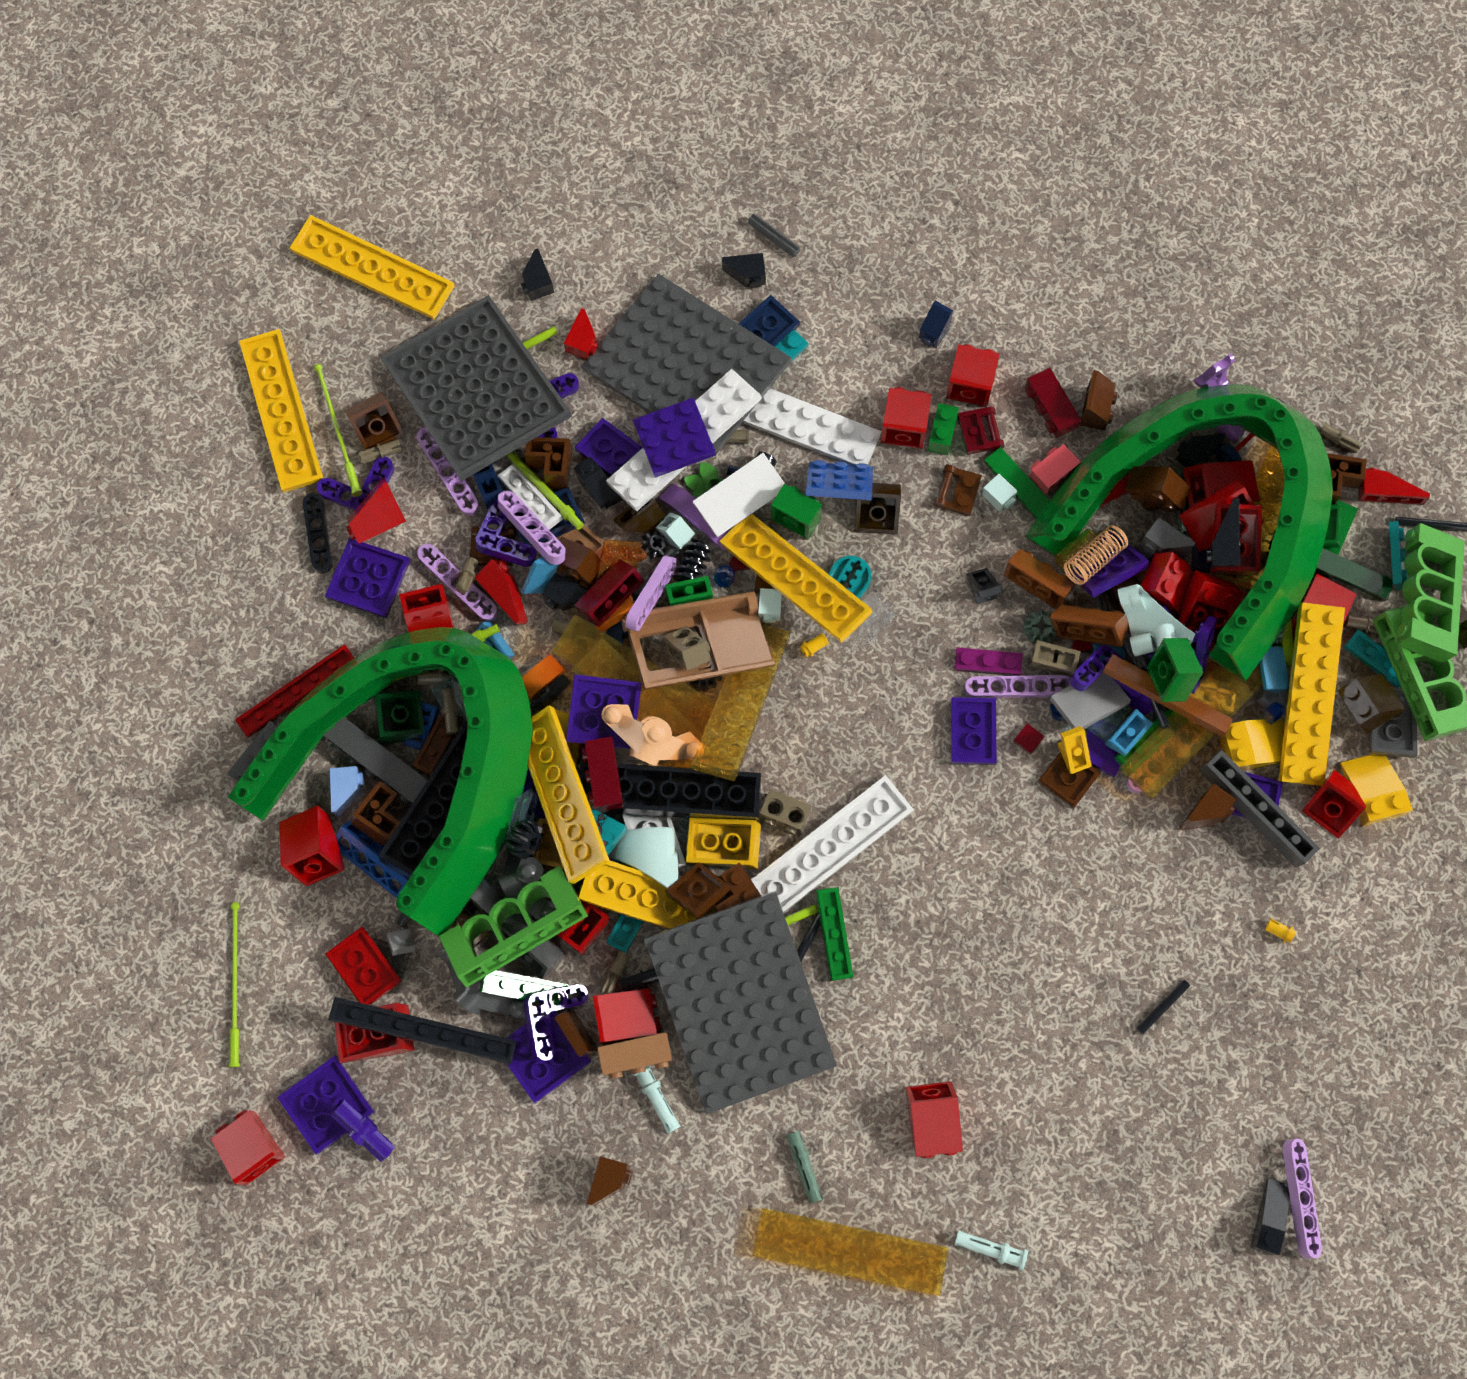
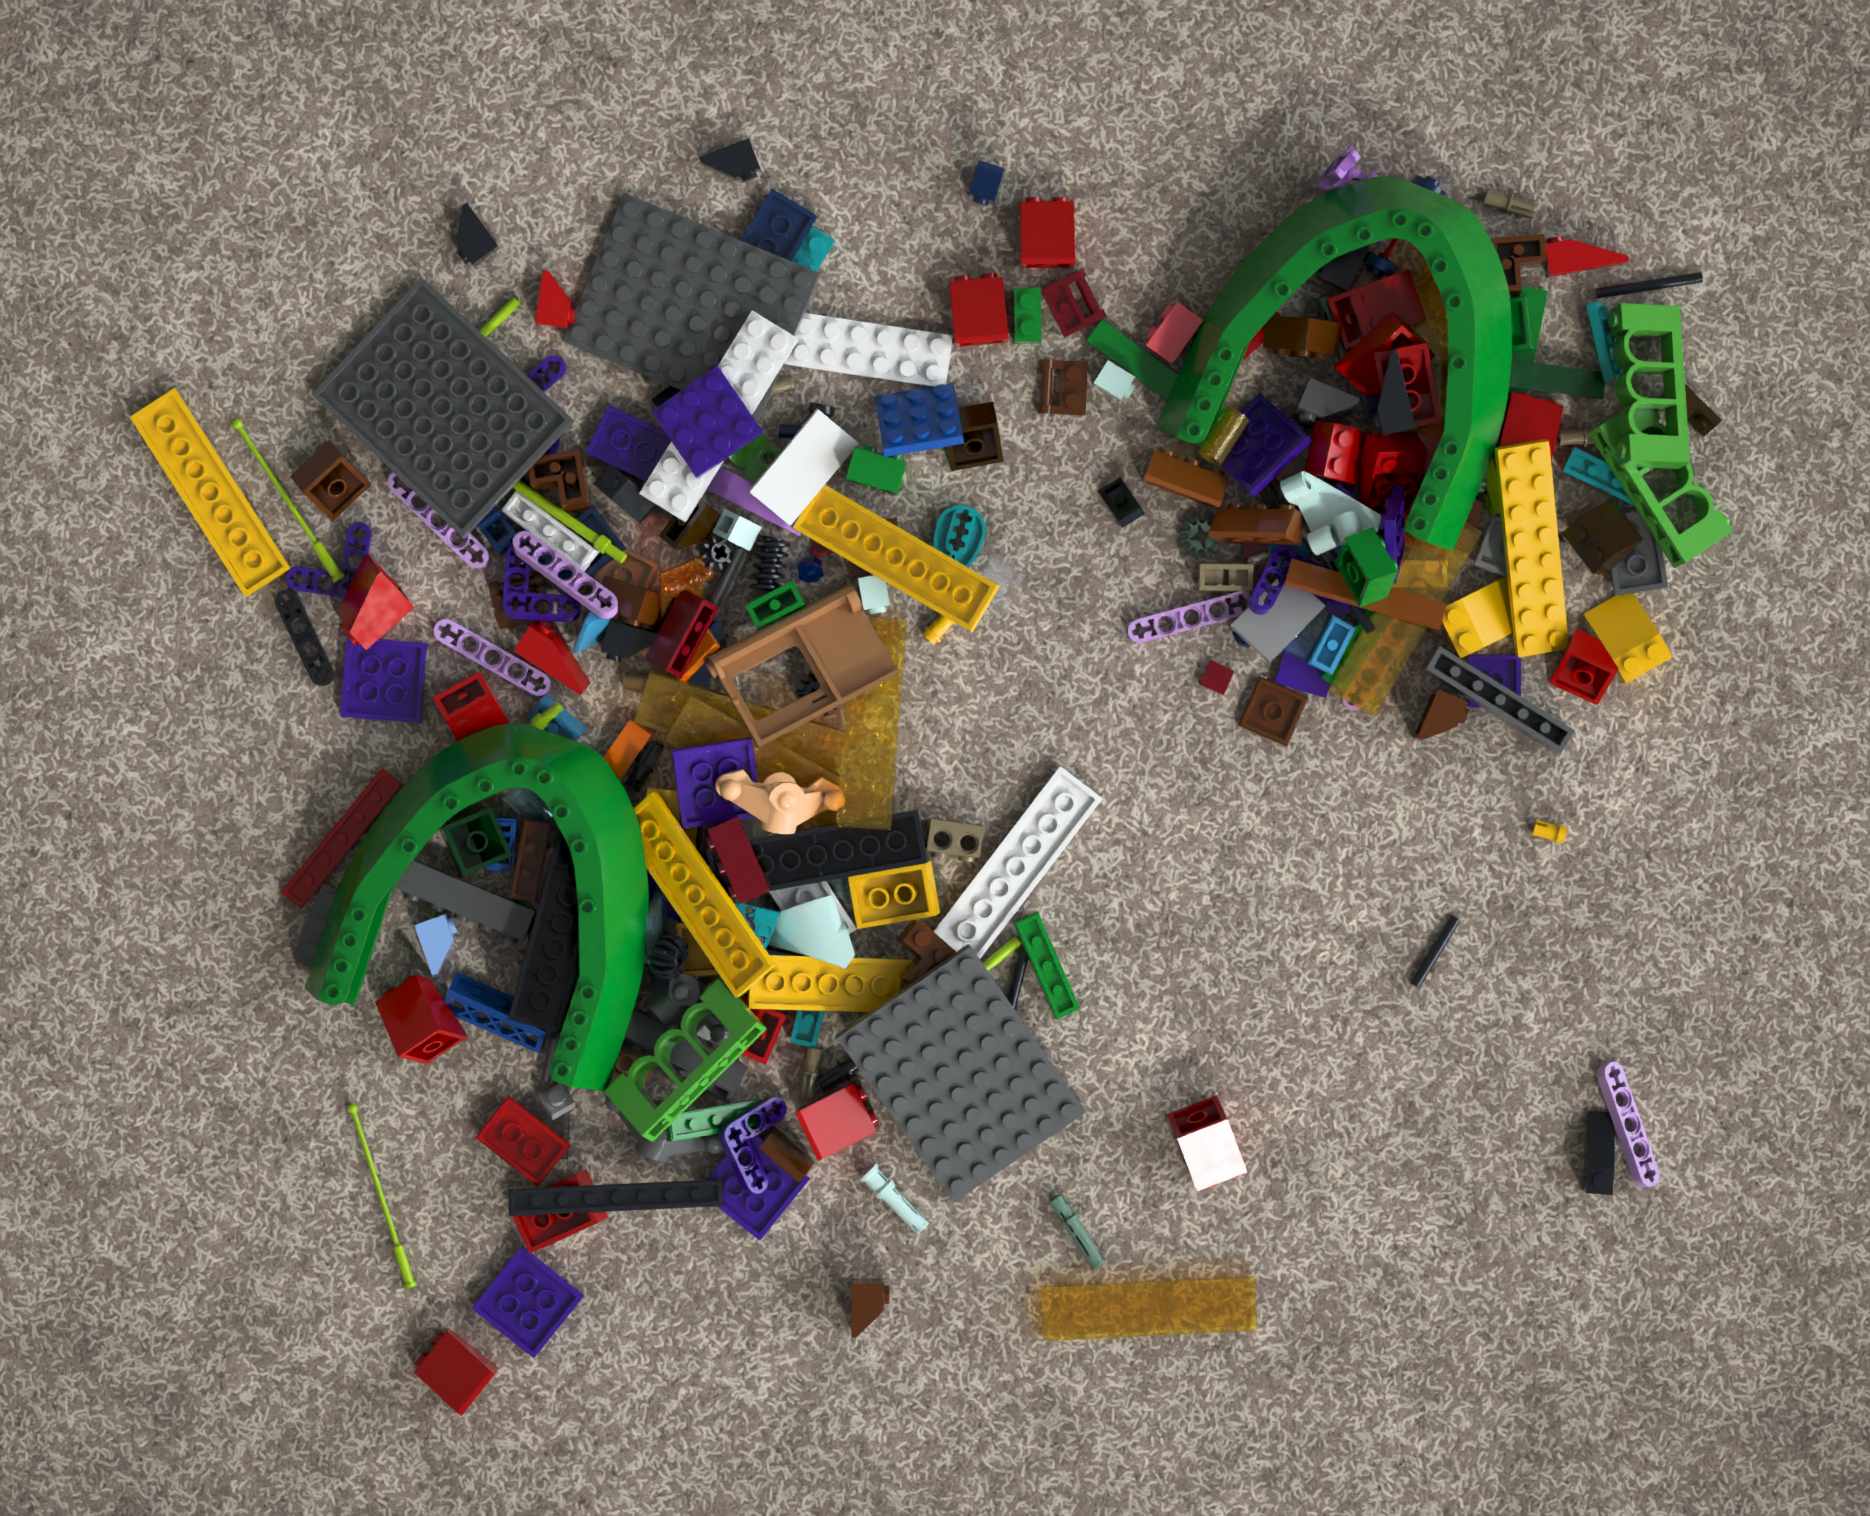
camera: 15 degrees left, 15 degrees up
(362, 1130) = (578, 1320): dark purple piece -> none
(372, 267) = (262, 274): yellow plate -> none
(373, 815) = (482, 970): reddish brown brick -> none
(379, 451) = (348, 516): dark tan axle -> none
(450, 711) = (535, 823): dark tan pin -> none
(467, 575) = (504, 650): dark tan axle -> none
(635, 1055) = (859, 1162): medium nougat slope -> none
(651, 593) = (732, 624): lavender beam -> none
(687, 648) = (792, 679): dark tan brick -> none
(697, 890) = (880, 963): reddish brown tile -> none
(774, 235) = (754, 102): dark grey axle -> none
(973, 731) = (1150, 685): dark purple plate -> none
(988, 661) = (1148, 595): magenta plate -> none
(1003, 1252) = (1315, 1267): light aqua pin -> none
(1052, 403) = (1151, 247): dark red brick -> none
(1075, 749) = (1273, 683): yellow slope -> none
(1098, 402) = (1207, 234): reddish brown slope -> none
(1099, 554) = (1258, 414): light nougat piece -> none
(1273, 713) = (1492, 579): clear blue tile -> none
(1274, 670) = (1484, 527): dark azure slope -> none

